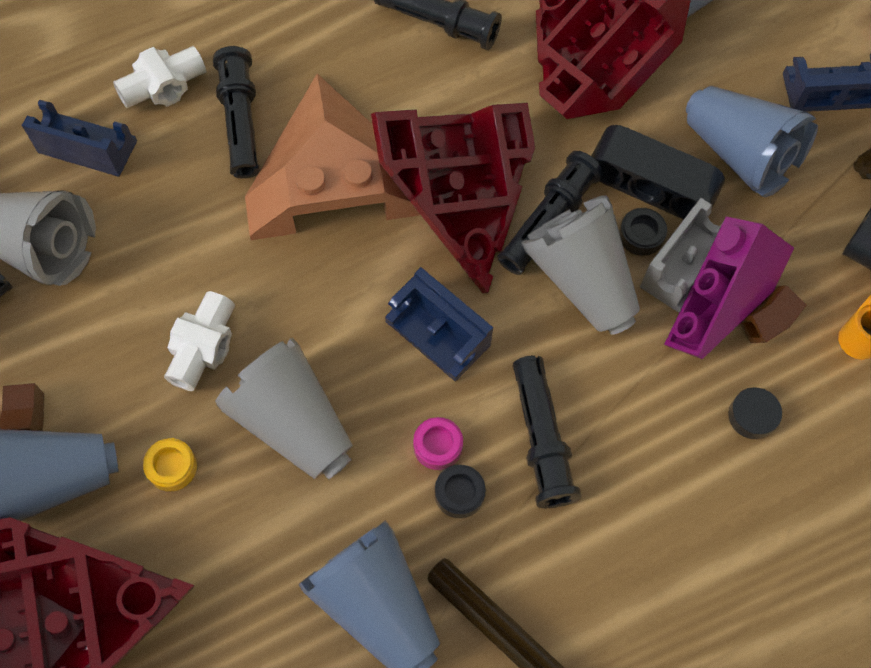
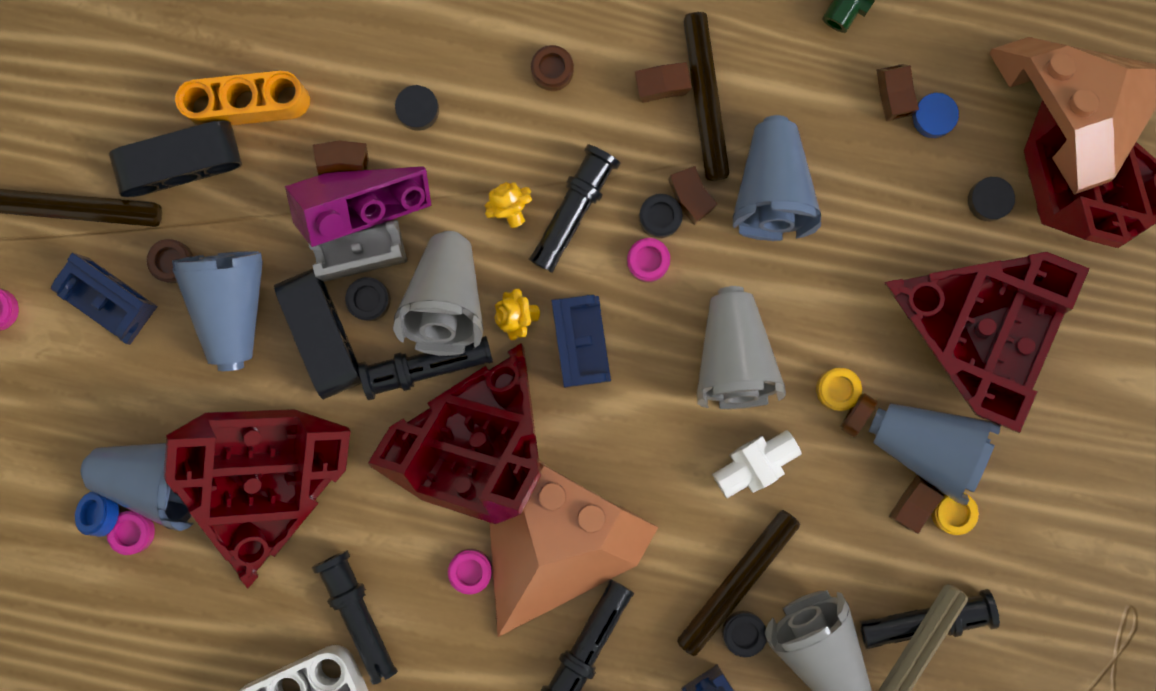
camera: 140 degrees left, 20 degrees up
(112, 209) = (744, 634): none -> black tile
(133, 449) = (858, 415): none -> reddish brown tile
(145, 244) = (738, 583): none -> dark brown axle
(377, 96) = (470, 571): none -> dark pink tile
(447, 530) = (691, 194): none -> reddish brown piece
(513, 303) = (515, 314): none -> yellow plant
(566, 614) = (663, 81): none -> reddish brown piece
(603, 390) = (508, 202): none -> yellow plant
(675, 548) = (552, 68): none -> reddish brown tile
(824, 149) = (161, 257): none -> reddish brown tile

